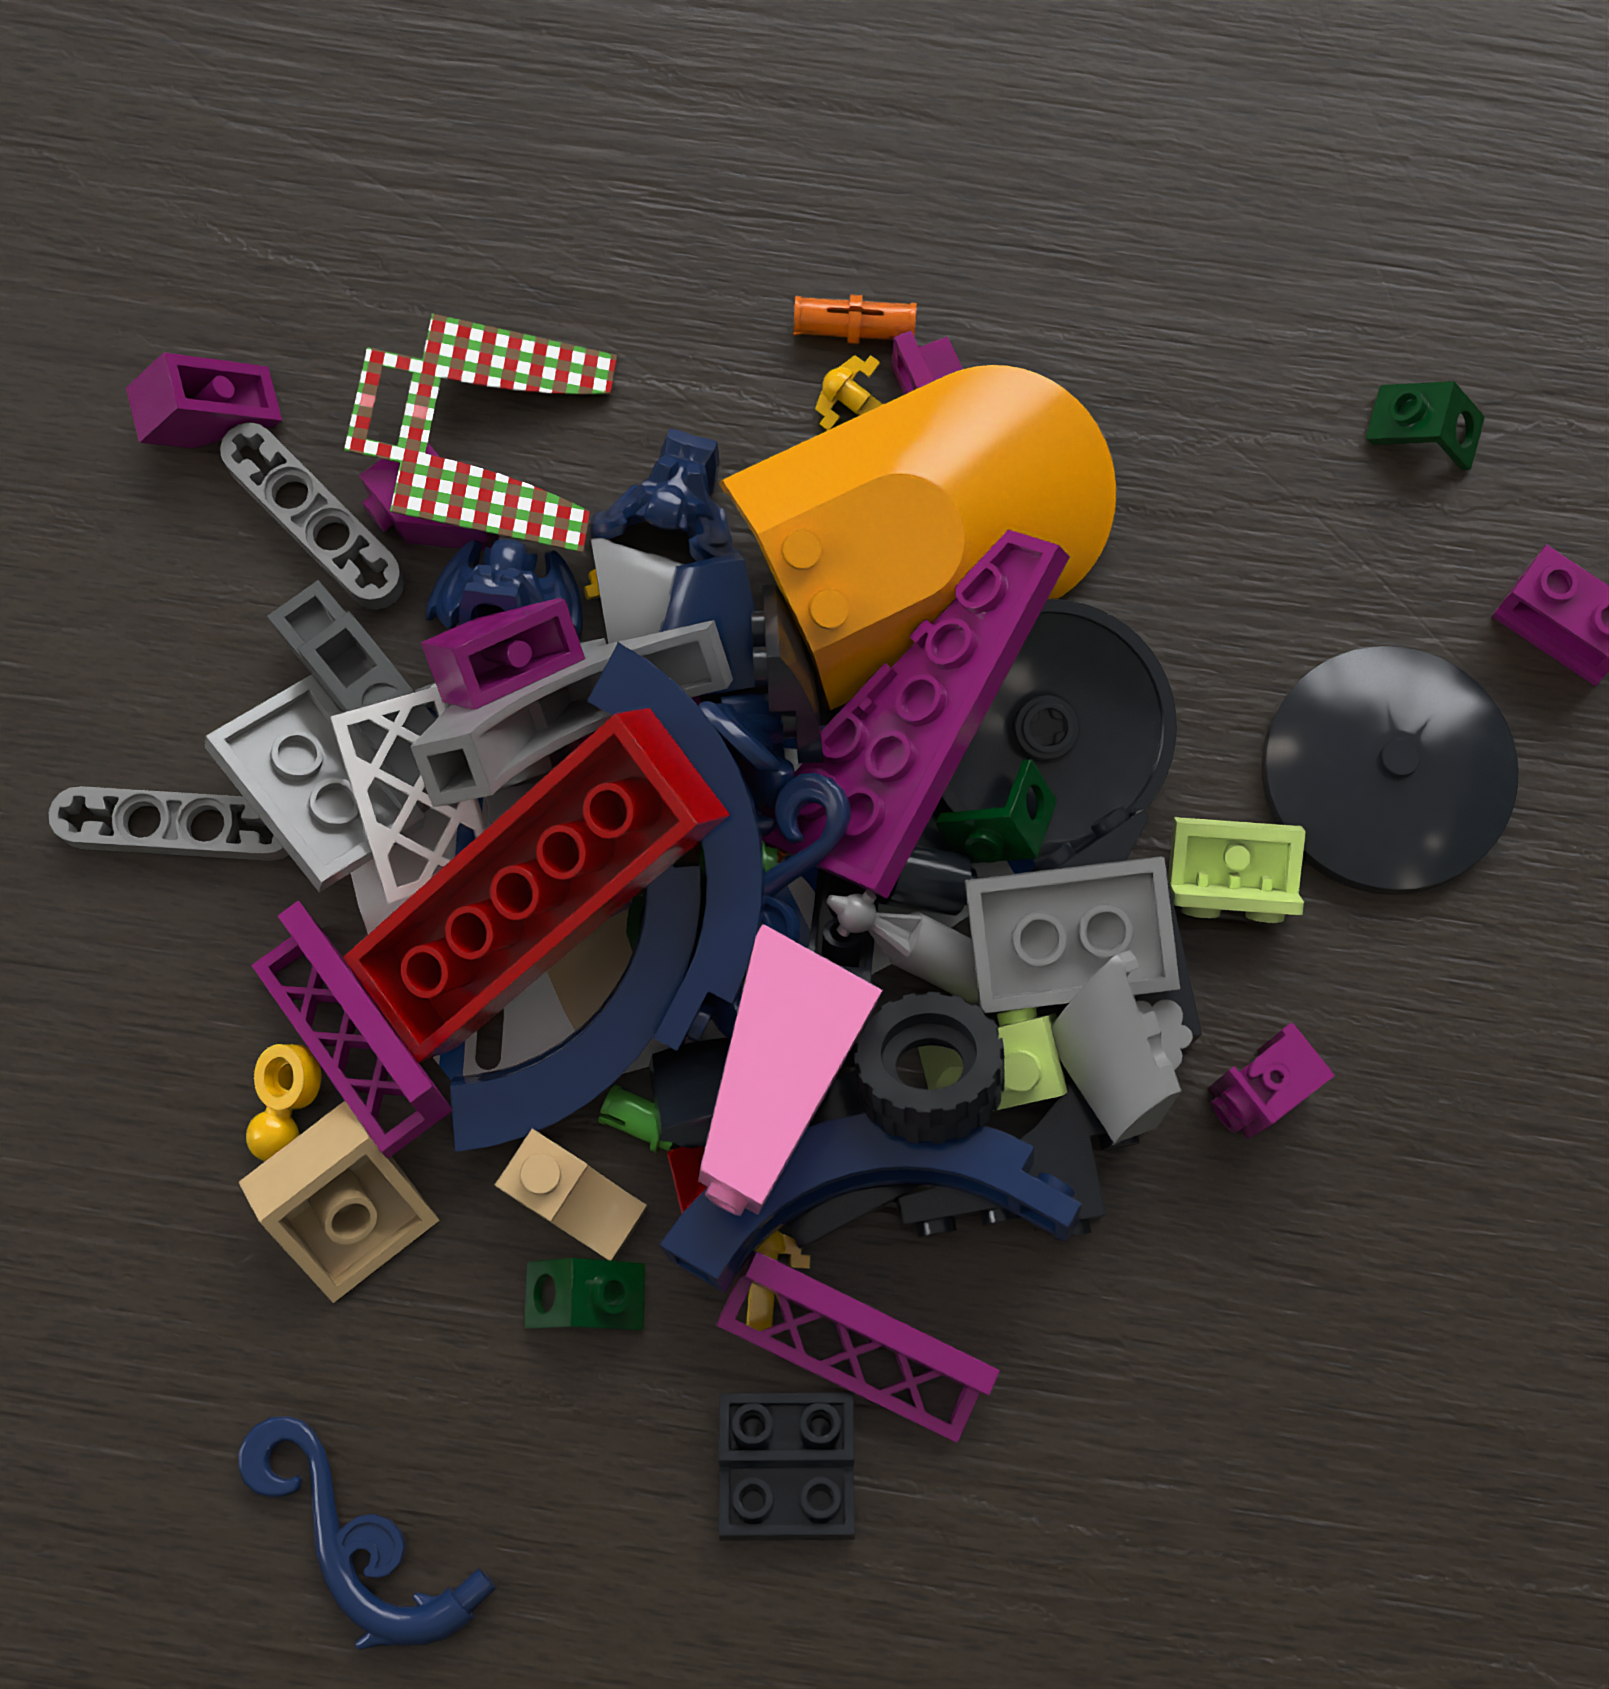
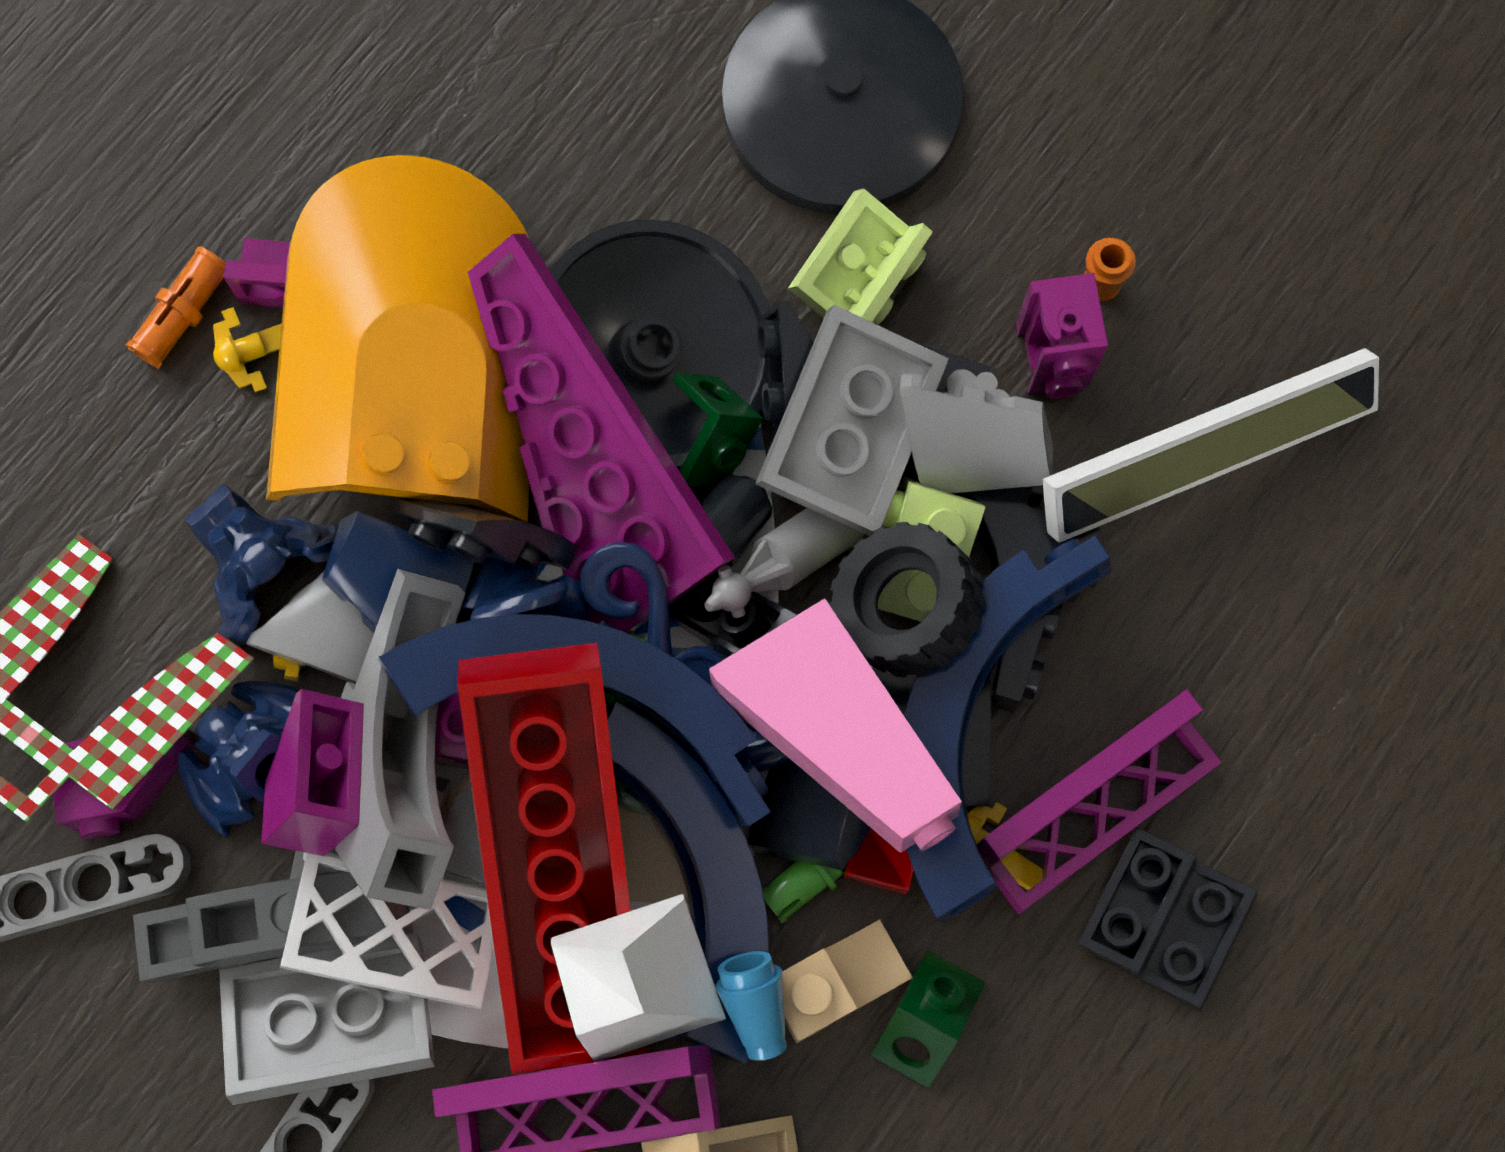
camera: 60 degrees left, 0 degrees up
(468, 1012) = (636, 979): none -> white slope
(507, 1126) = (754, 1001): none -> dark azure cone
(1248, 1278) = (1210, 445): none -> tile
(1377, 1087) = (1112, 264): none -> orange pin

